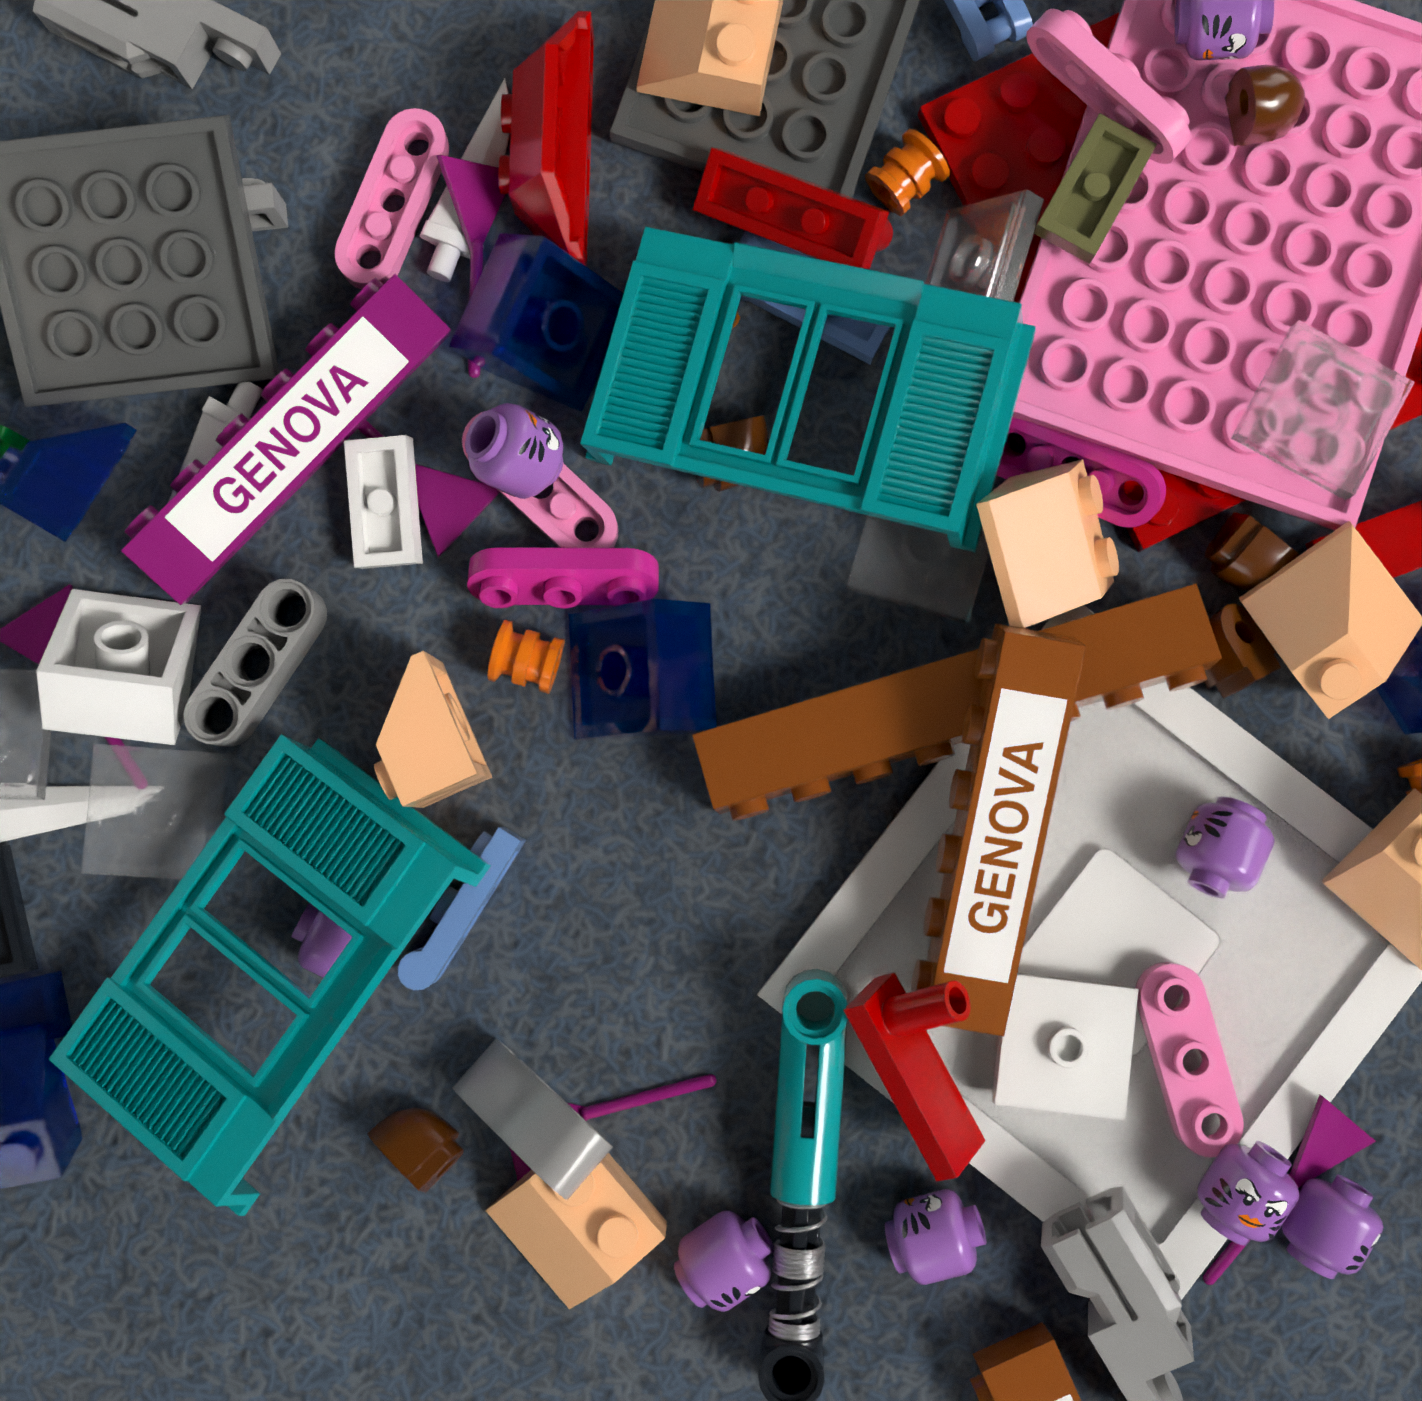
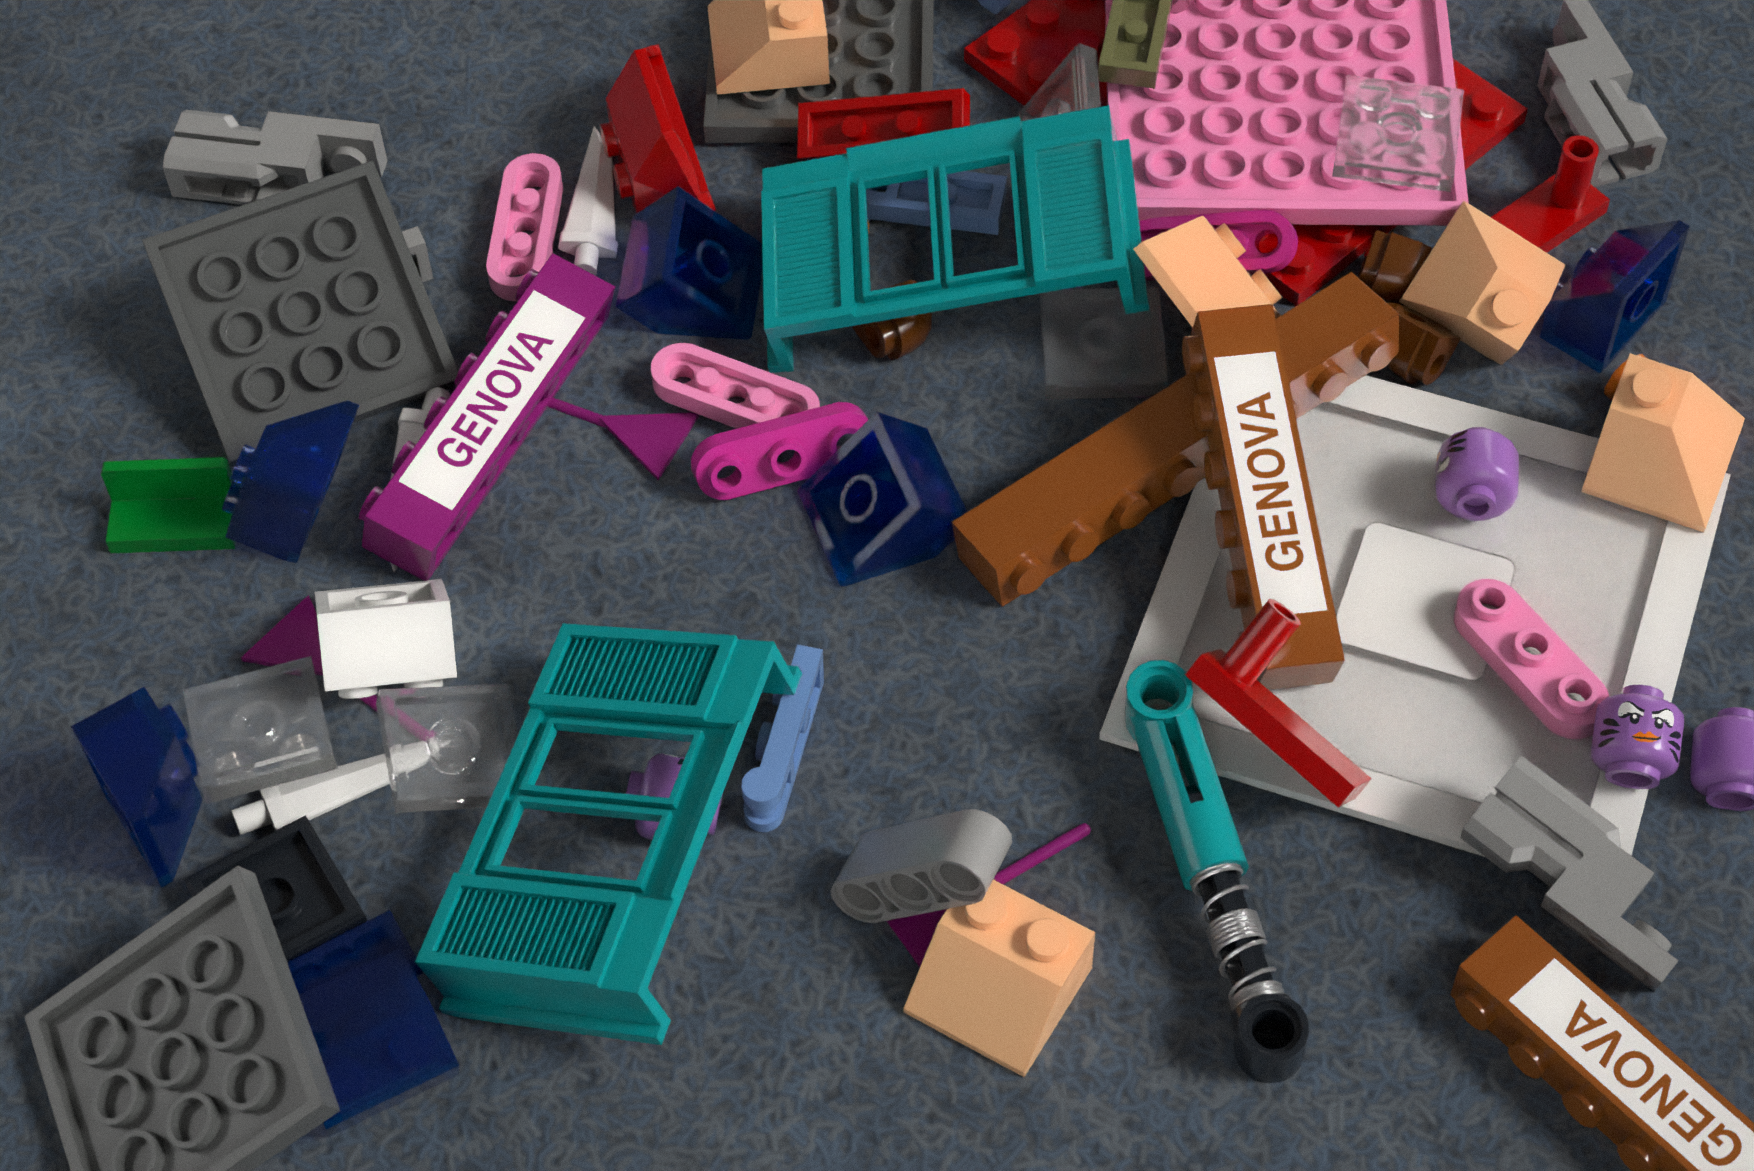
camera: 15 degrees left, 30 degrees down
(227, 674) = (513, 572): light grey beam -> none
(383, 502) = (594, 442): white plate -> none
(418, 1145) = (812, 962): reddish brown piece -> none
(427, 739) = (711, 579): light nougat slope -> none
(476, 202) = (605, 210): magenta piece -> none
(514, 450) = (707, 346): medium lavender head -> none
(525, 657) = (770, 524): orange bush -> none
(724, 1261) = (1163, 966): medium lavender head -> none
(907, 172) = (983, 81): orange bush -> none
(934, 1236) = (1362, 881): medium lavender head -> none
(1067, 1047) = (1412, 681): white plate -> none
(1327, 1142) = (1699, 698): magenta piece -> none

